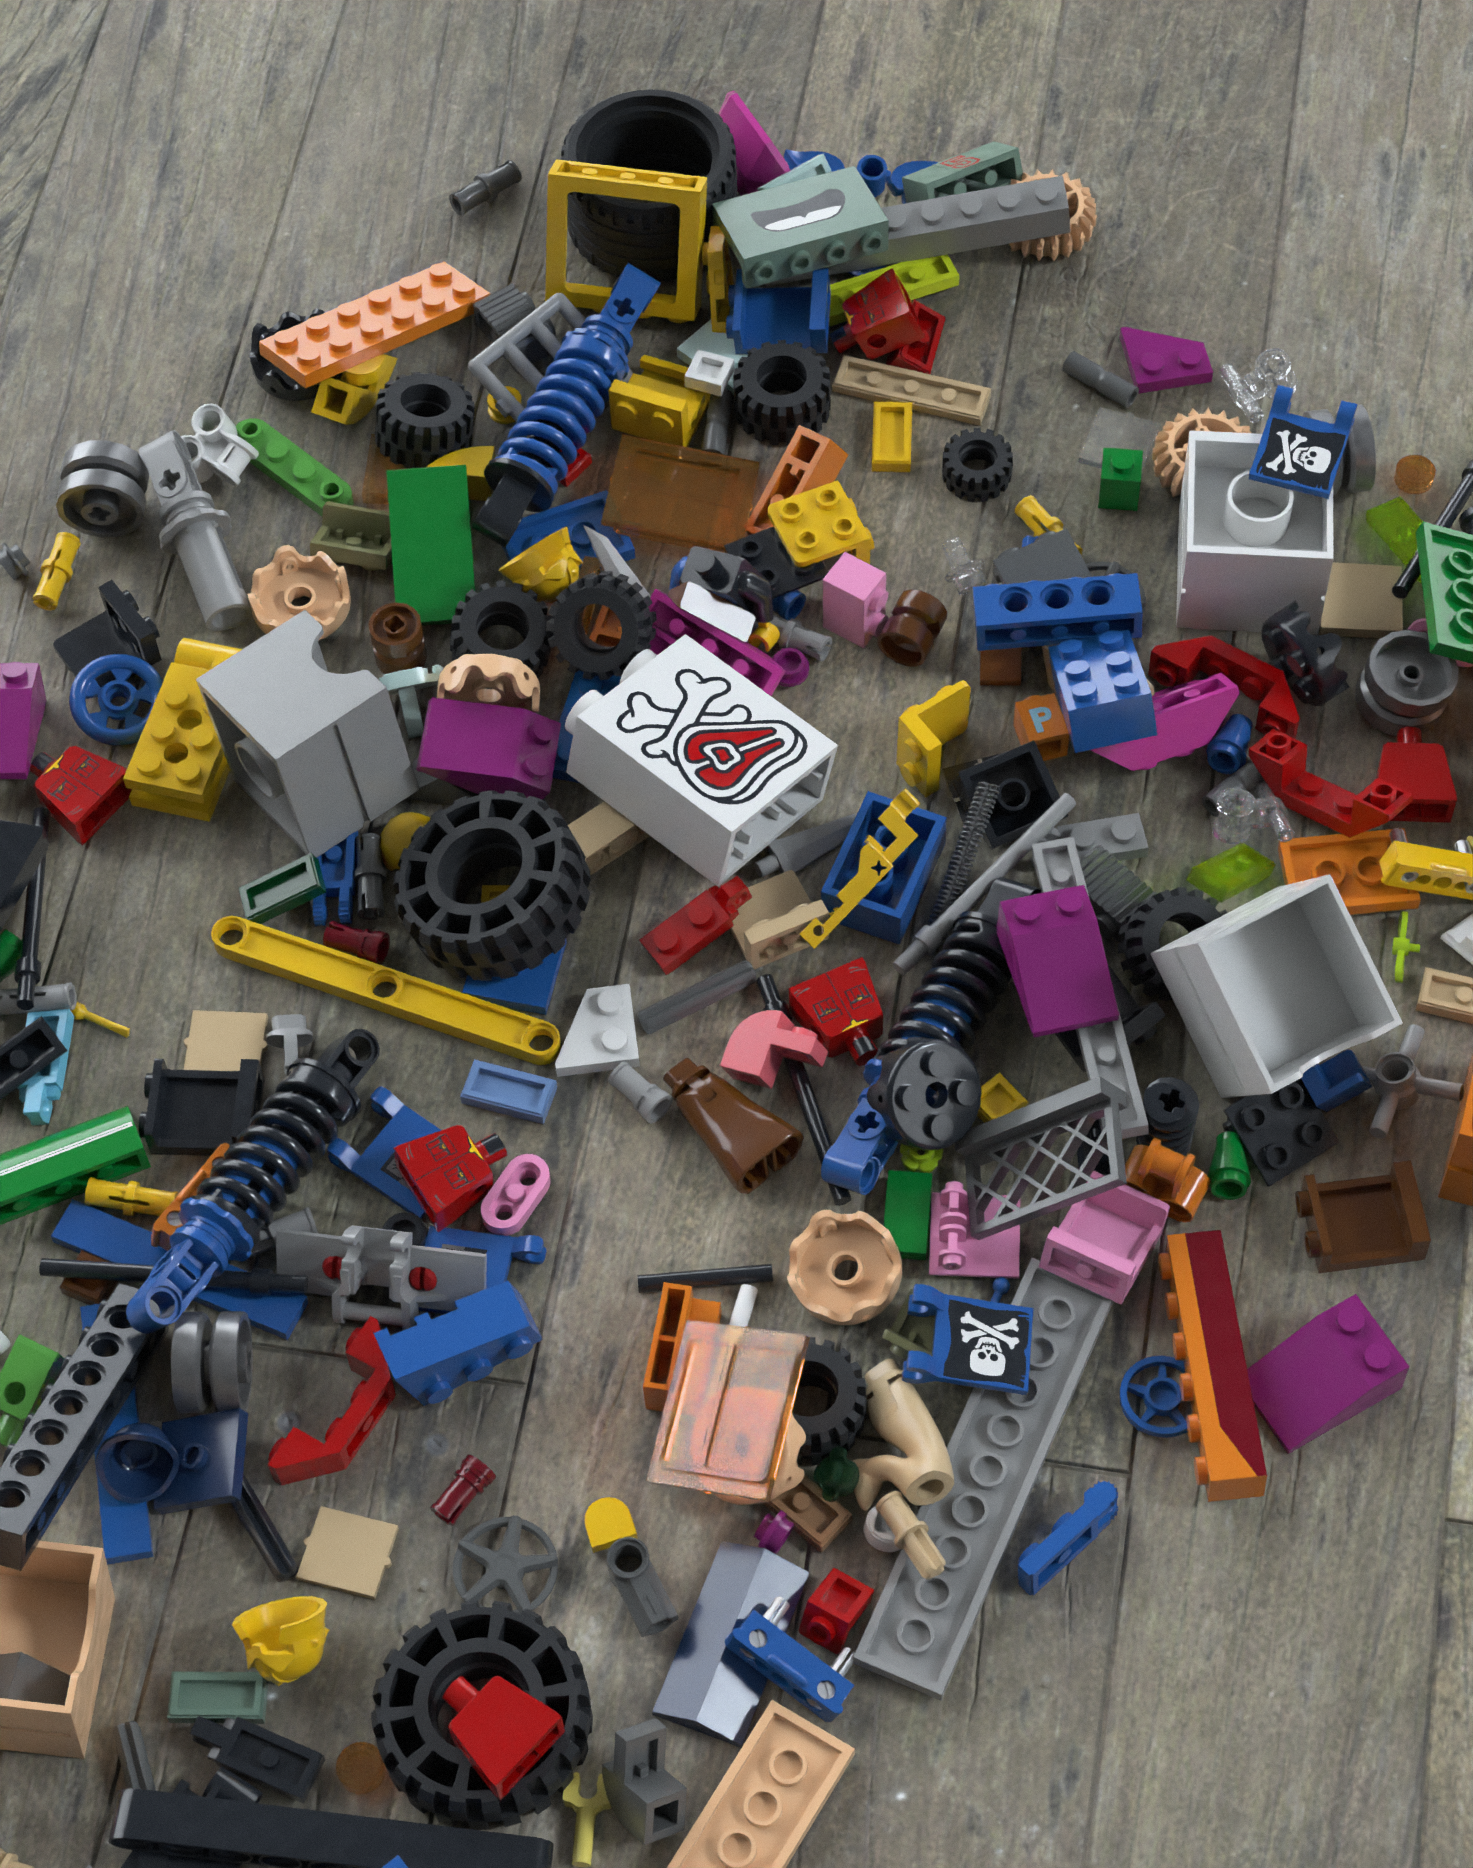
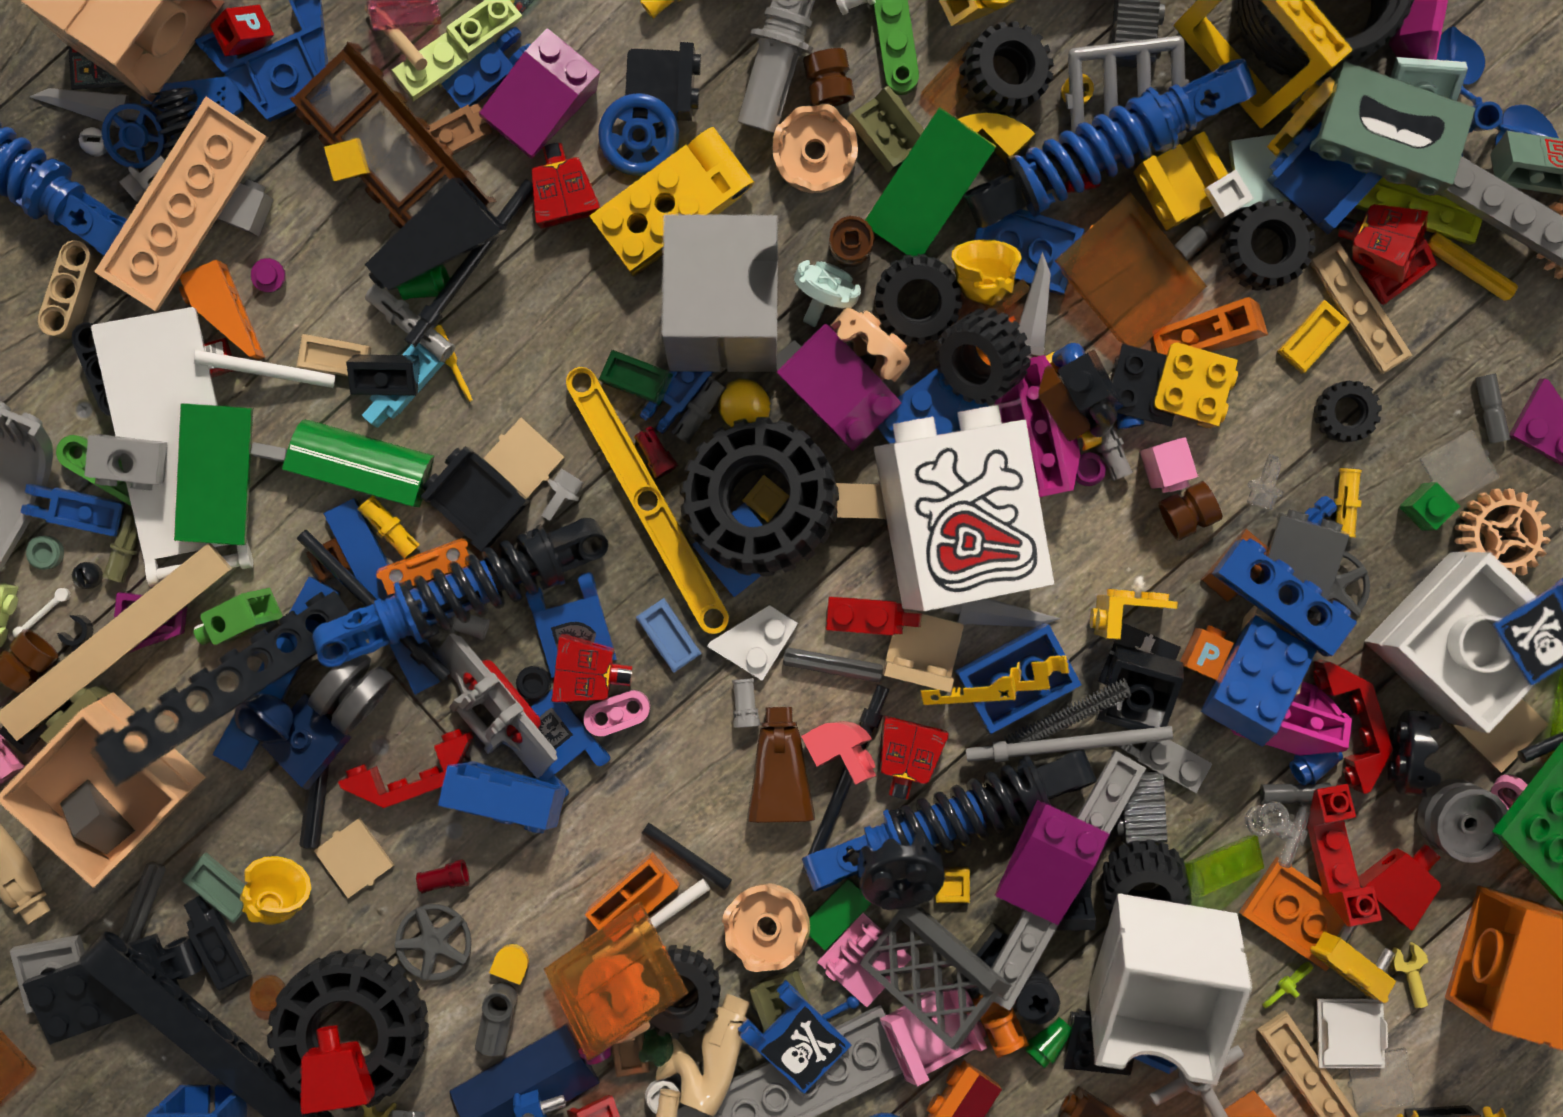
camera: 35 degrees right, 30 degrees up
(261, 532) = (828, 72): none -> reddish brown wheel
(977, 297) = (1472, 267): none -> yellow axle

